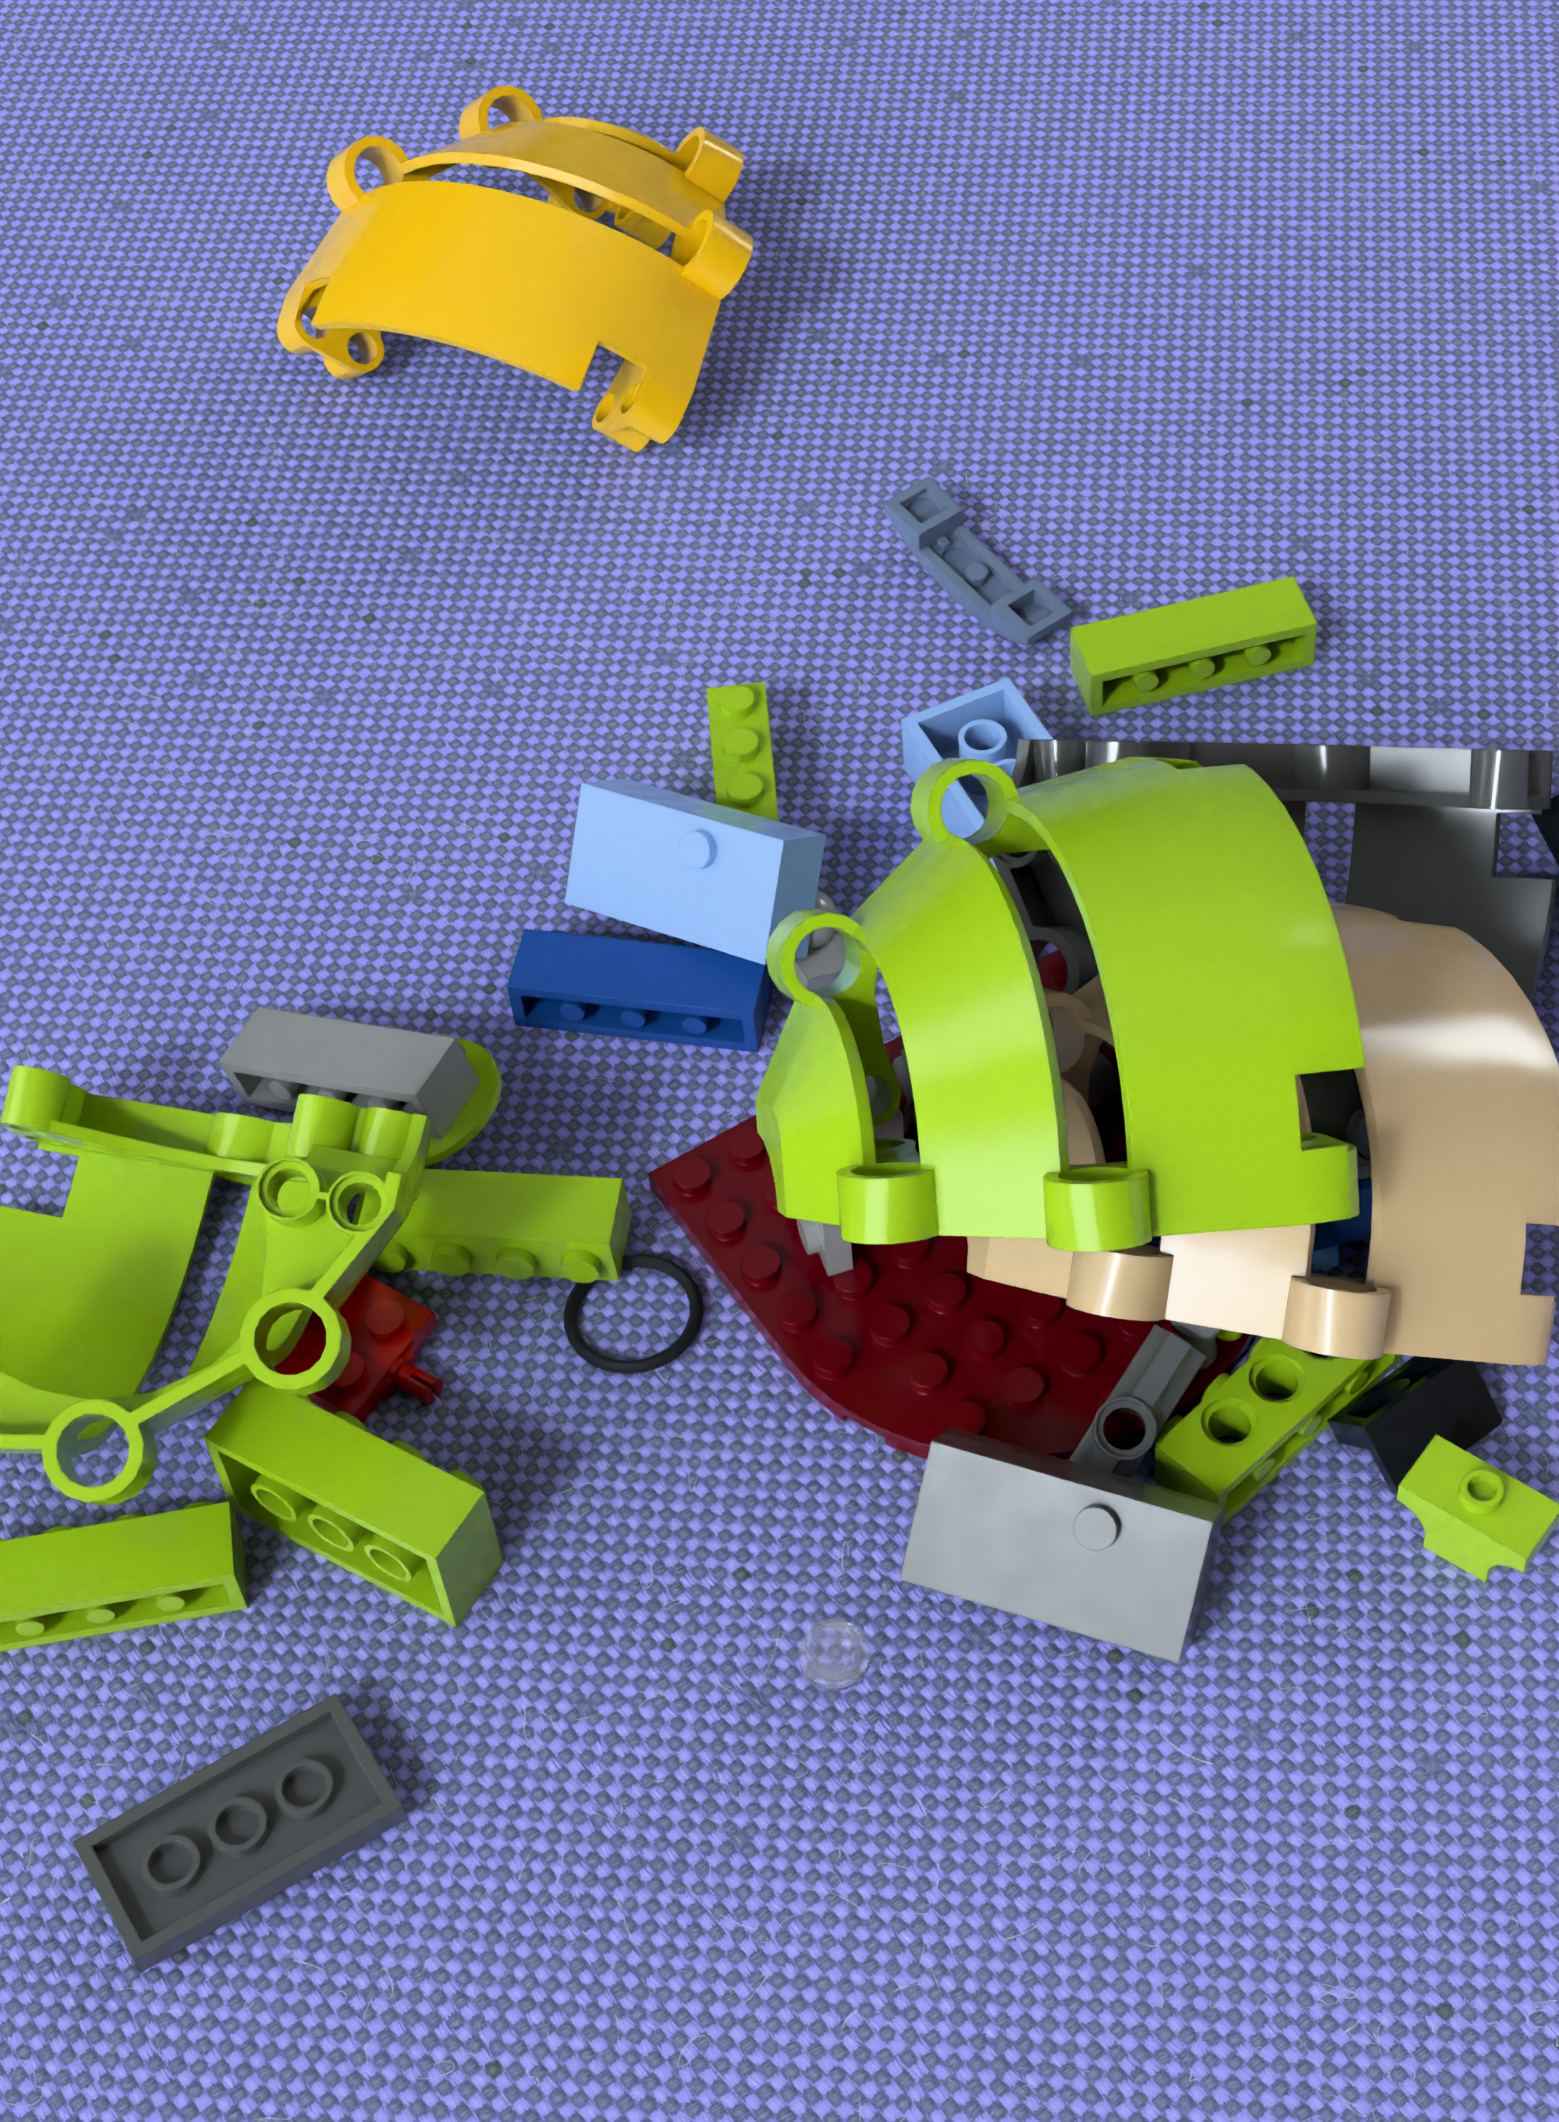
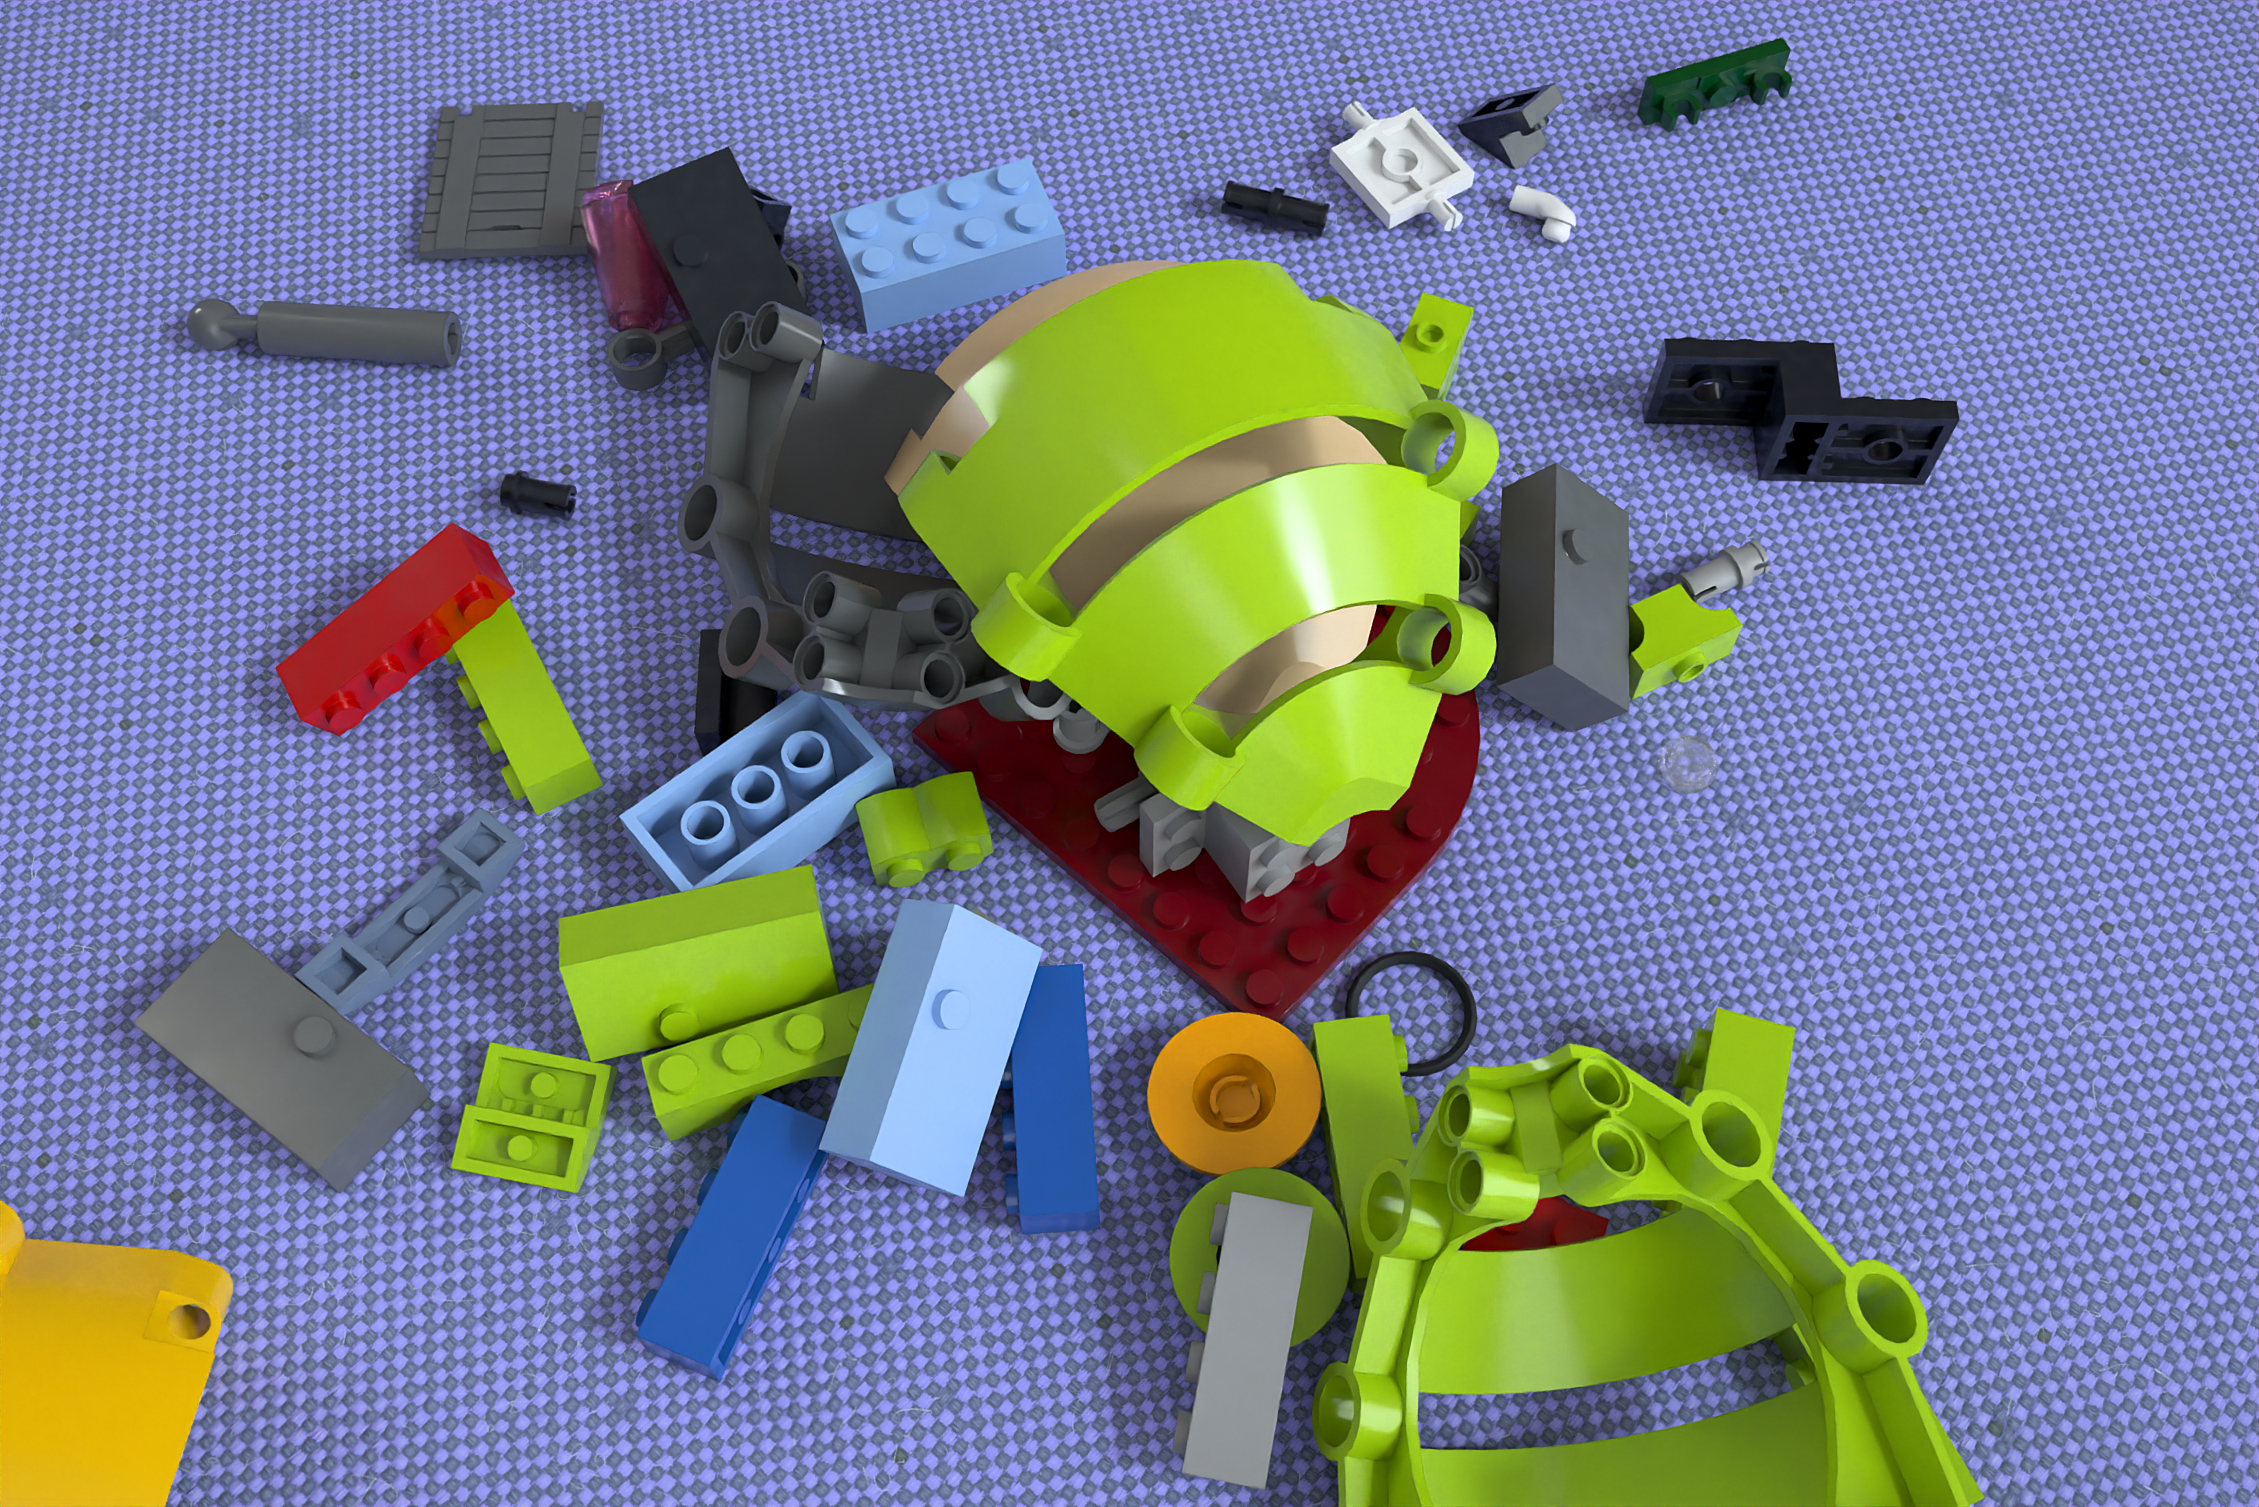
camera: 110 degrees left, 10 degrees up
(239, 1832) = (2032, 1177): dark grey plate -> none
(580, 741) = (734, 1239): none -> blue brick
(583, 1115) = (1234, 1094): none -> light orange hat
(761, 640) = (535, 1118): none -> lime slope
(828, 493) = (284, 1059): none -> dark grey brick
(846, 728) = (696, 962): none -> lime brick
(998, 1677) = (1675, 639): none -> lime brick
(1088, 1787) = (1731, 569): none -> light grey pin
(1266, 542) = (395, 630): none -> red brick
(1295, 1917) = (1798, 411): none -> black bracket
(1443, 667) = (537, 496): none -> black pin

